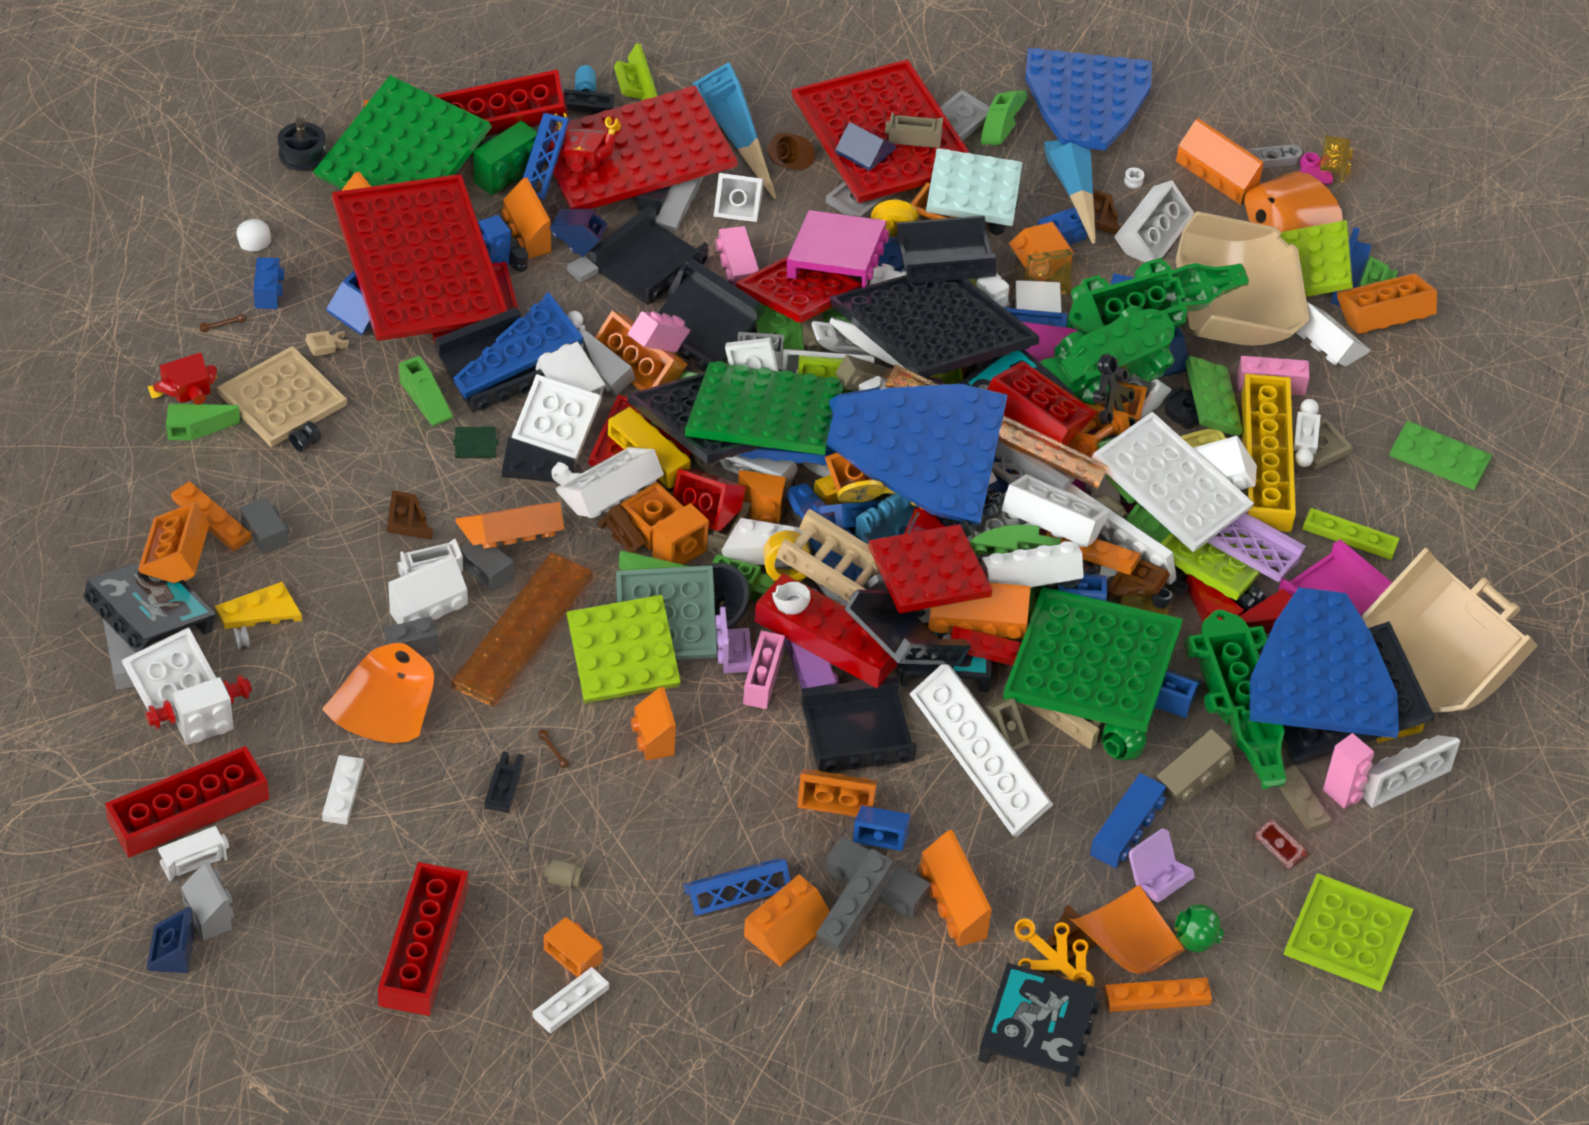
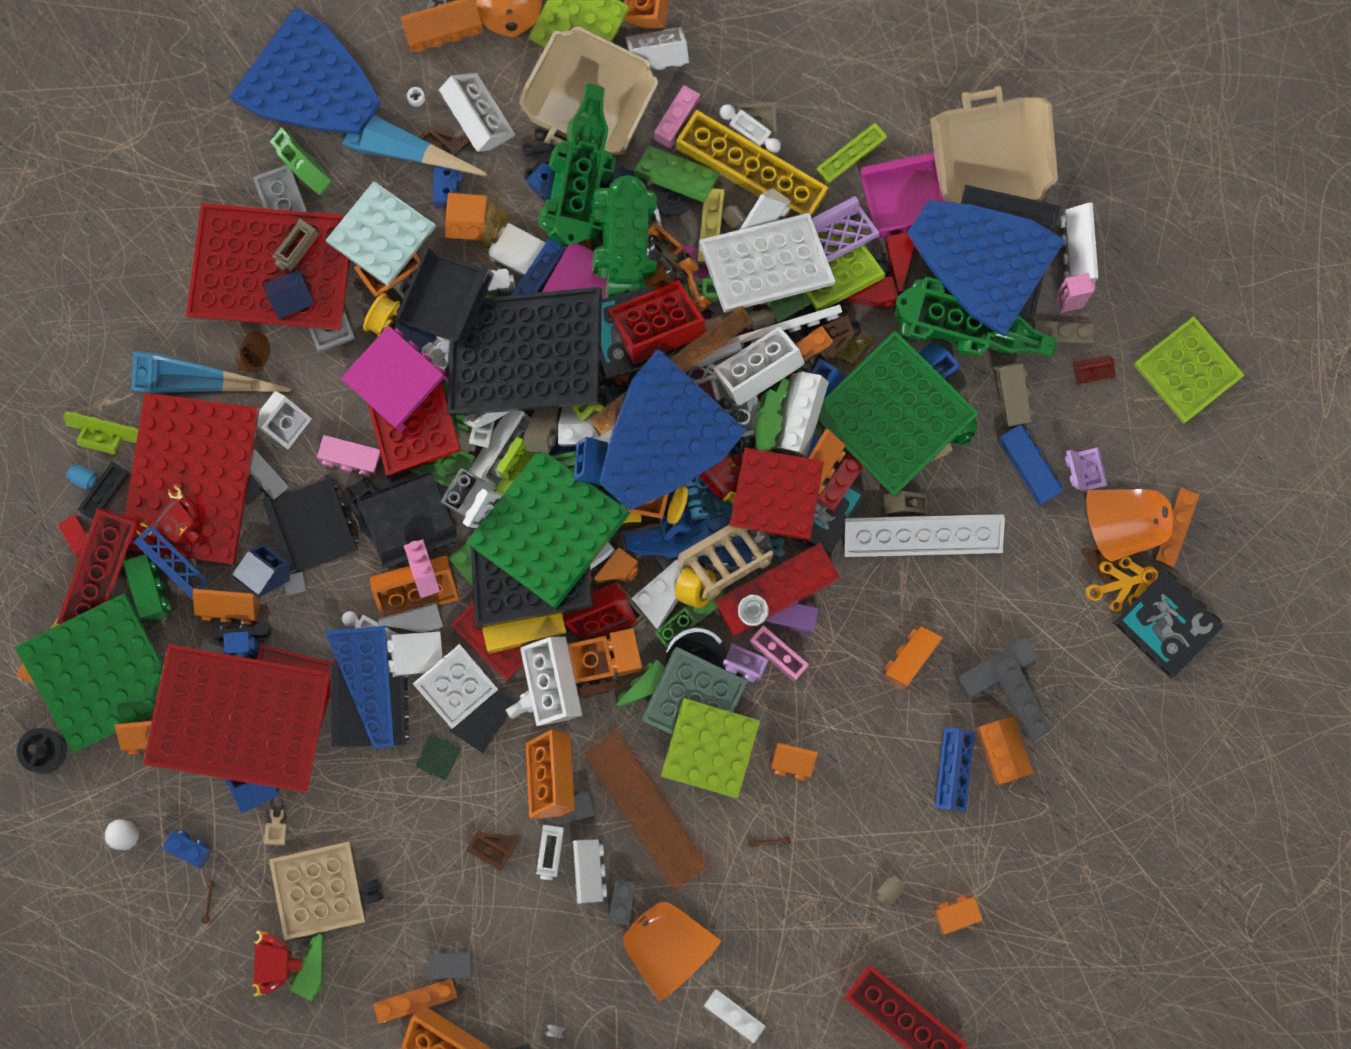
camera: 60 degrees left, 30 degrees up
(263, 605) = (528, 1002): yellow wing -> none
(423, 390) = (373, 775): bright green slope -> none
(504, 784) = (787, 894): black hinge -> none
(570, 1000) = (999, 937): white plate -> none
(856, 725) = (858, 612): black panel -> none
(881, 828) = (959, 643): blue brick -> none
(902, 633) = (827, 551): black panel -> none
(955, 890) = (1038, 622): orange slope -> none
(1198, 928) = (1146, 472): green plant -> none
(1440, 455) = (807, 41): bright green plate -> none

